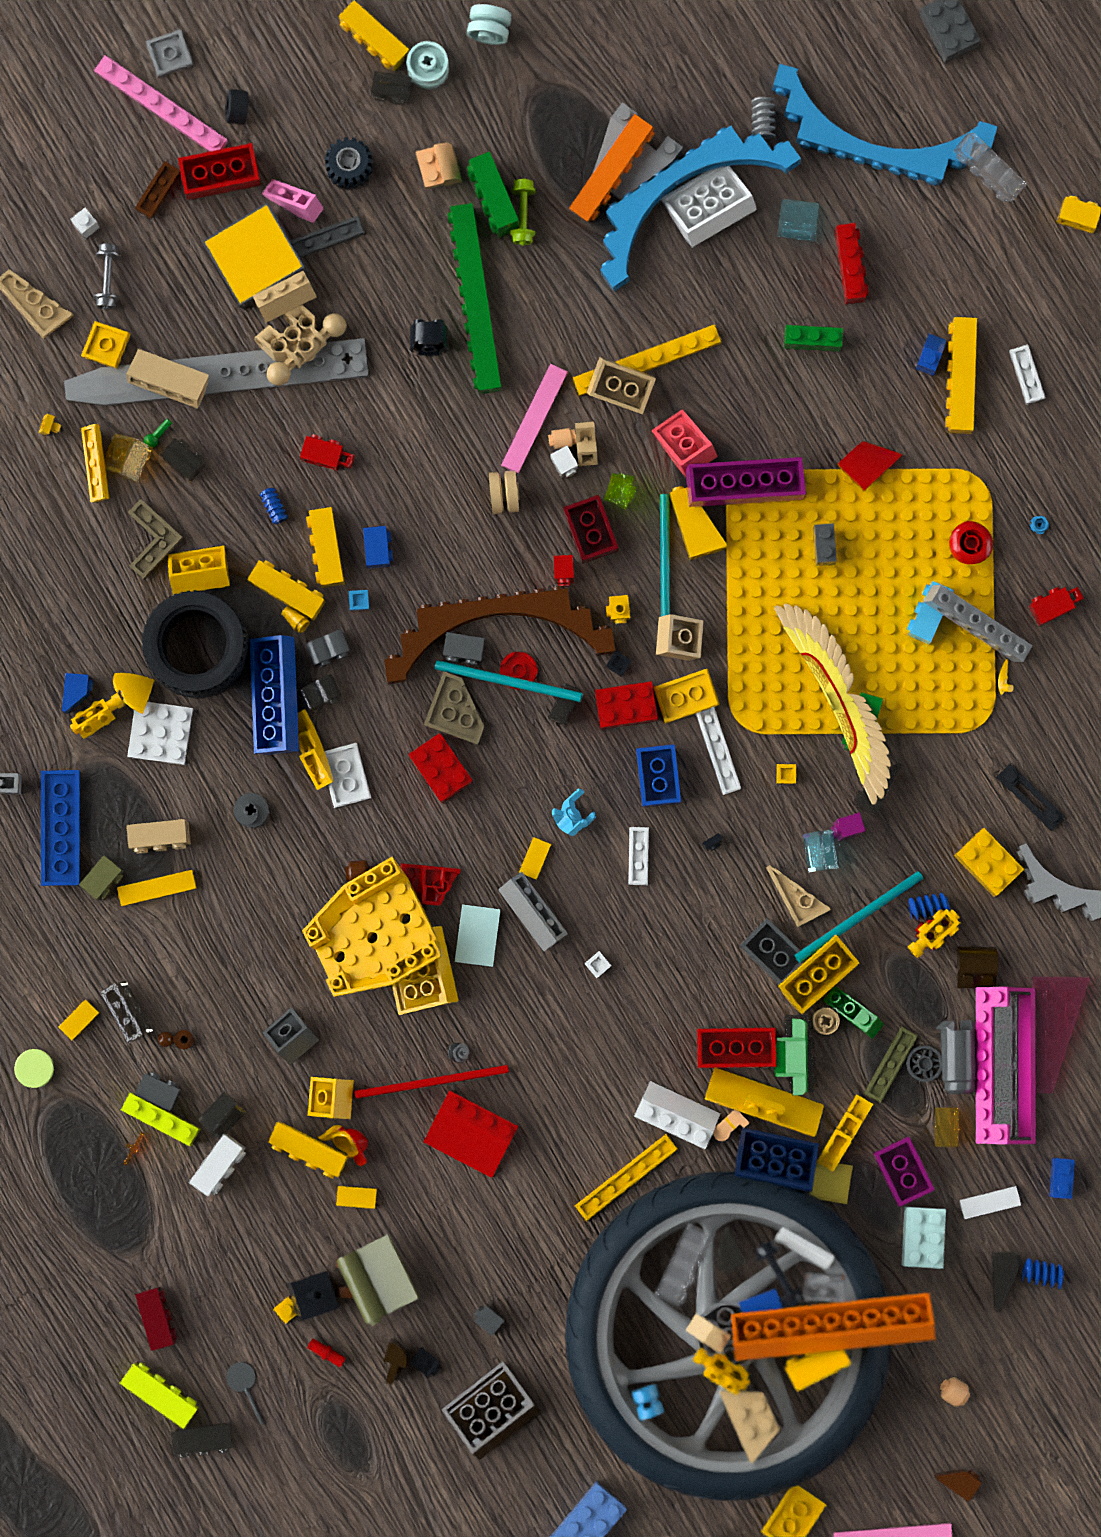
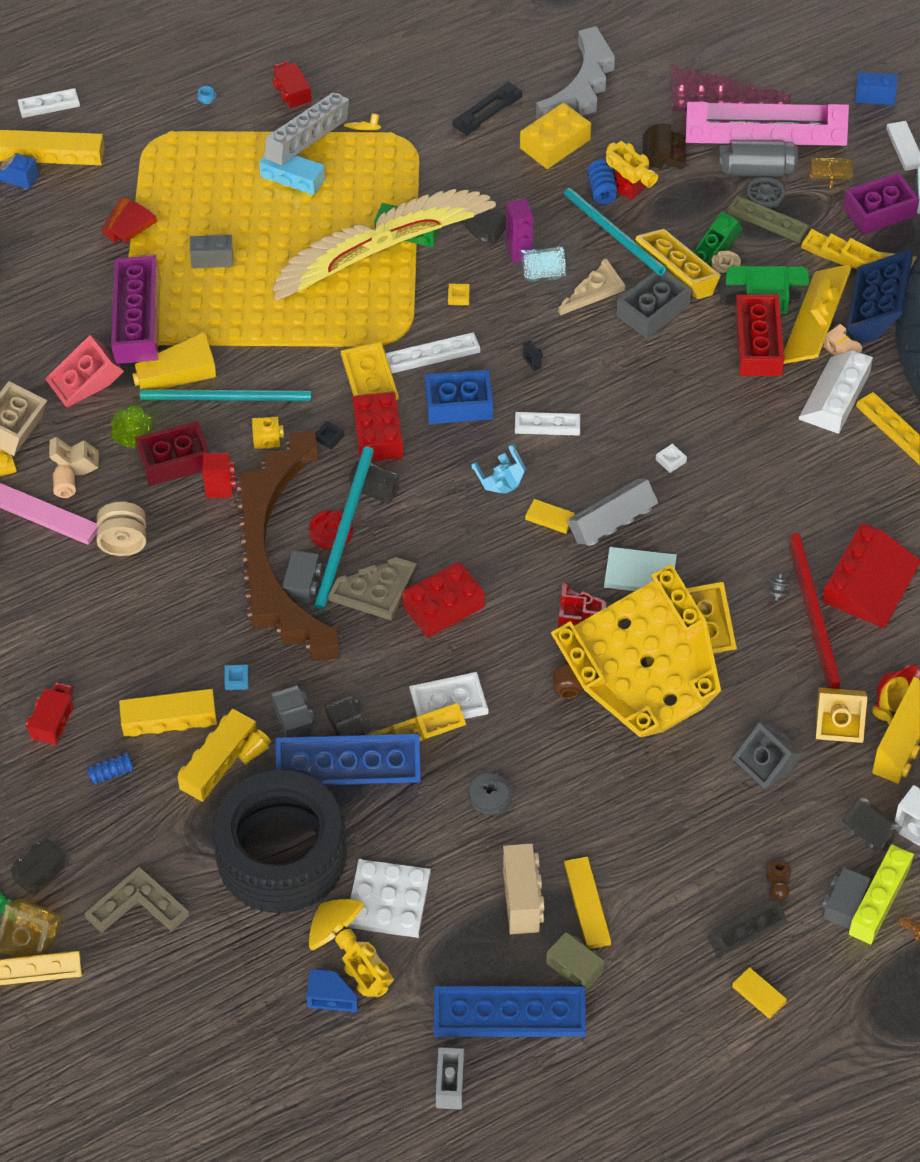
camera: 90 degrees left, 30 degrees down
(34, 1068) = (826, 1044): yellowish green tile -> none
(198, 570) = (183, 849): yellow slope -> none
(376, 547) = (172, 661): blue brick -> none
(564, 462) = (92, 479): white brick -> none
(679, 637) = (304, 373): tan brick -> none
(971, 543) = (222, 137): red hat -> none

